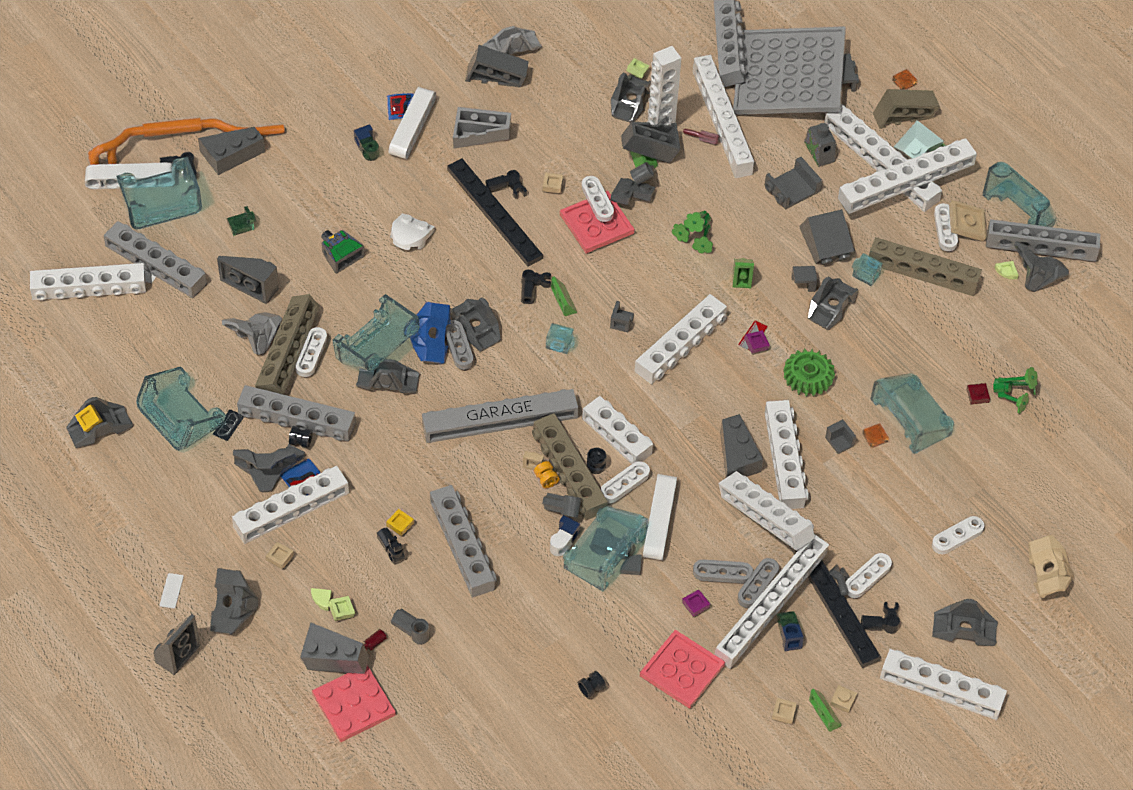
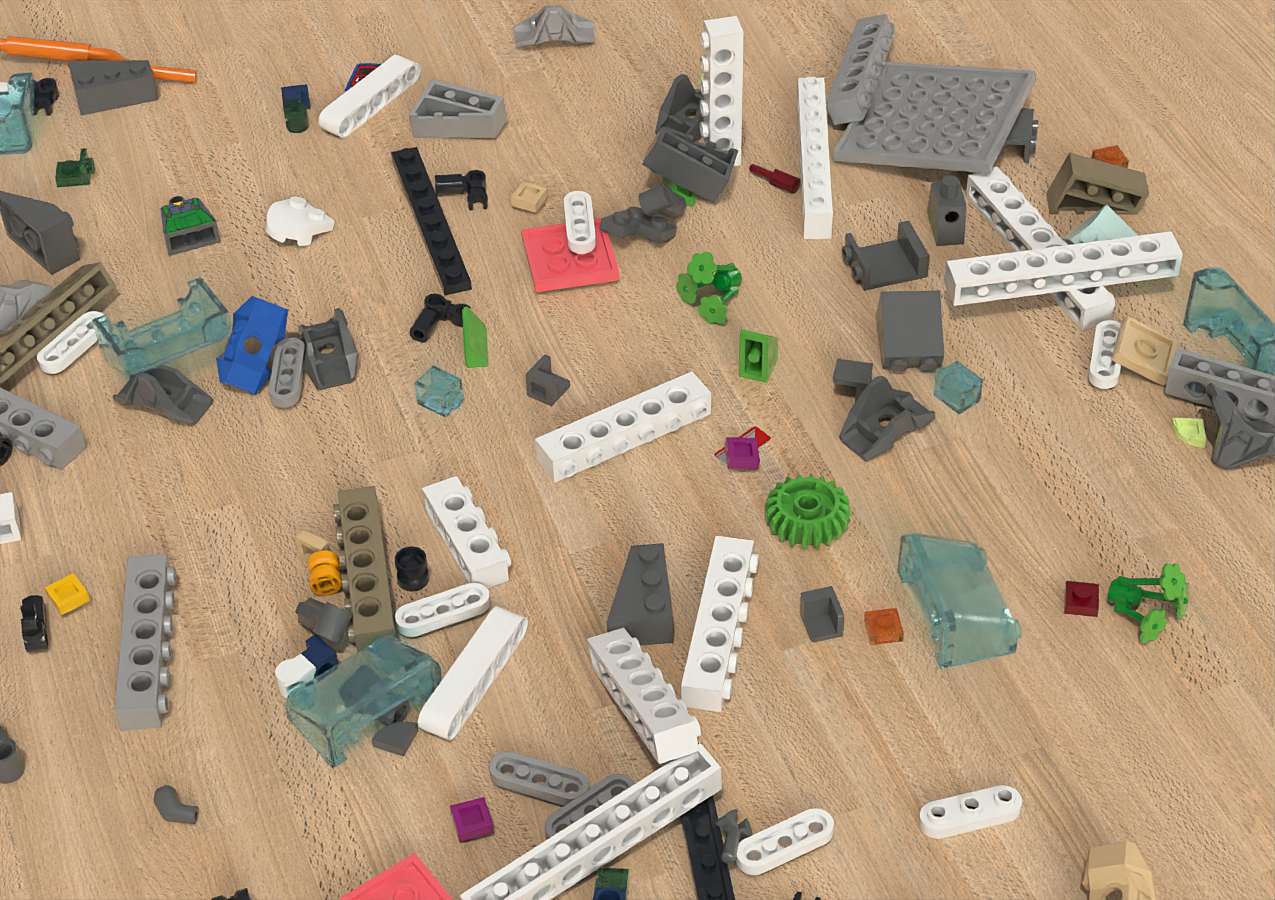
camera: 20 degrees right, 10 degrees down
(496, 67) = (515, 49): dark grey wedge -> none
(498, 415) = (293, 476): light grey brick -> none
(526, 636) = (171, 809): none -> dark grey arm
(926, 266) = (1055, 400): dark tan brick -> none

